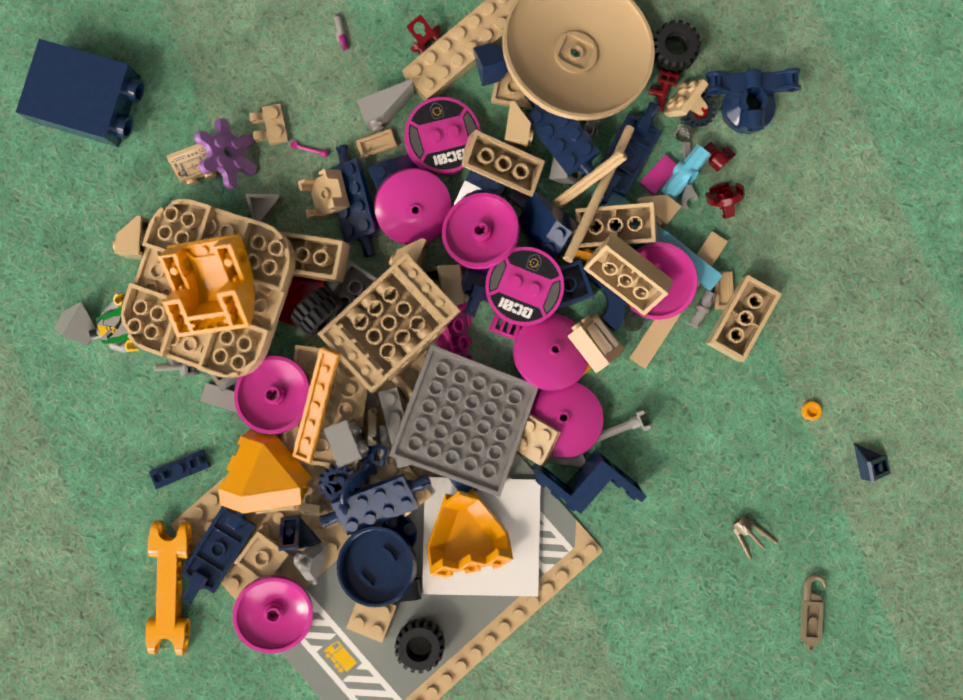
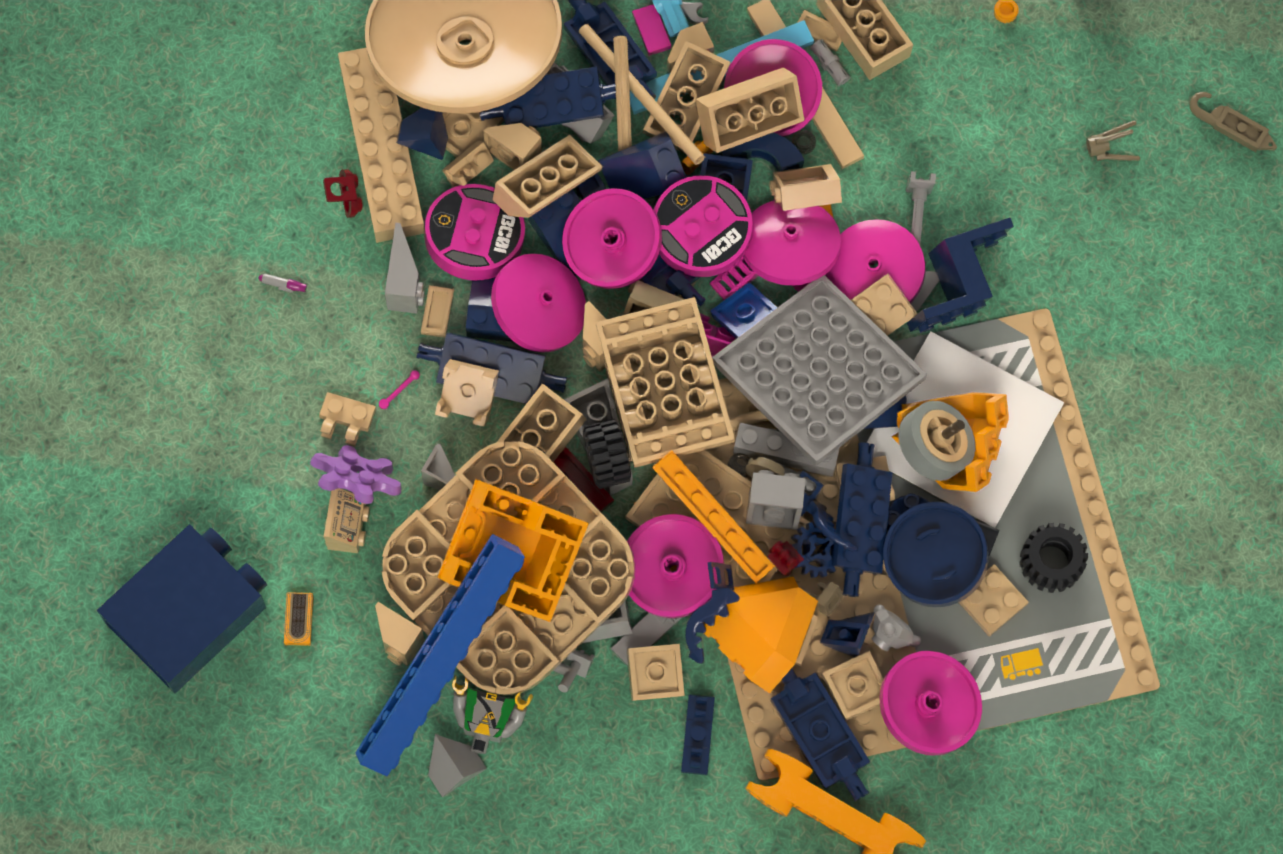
camera: 65 degrees left, 15 degrees down
(120, 171) = (298, 619): none -> tile
(121, 277) = (440, 655): none -> blue brick
(202, 420) = (655, 672): none -> tan plate
(256, 439) = (707, 612): none -> dark blue piece
(316, 467) = (784, 557): none -> dark red arm
(454, 528) = (936, 440): none -> wheel
(484, 346) = (742, 310): none -> blue plate
(489, 105) = (468, 164): none -> tan plate

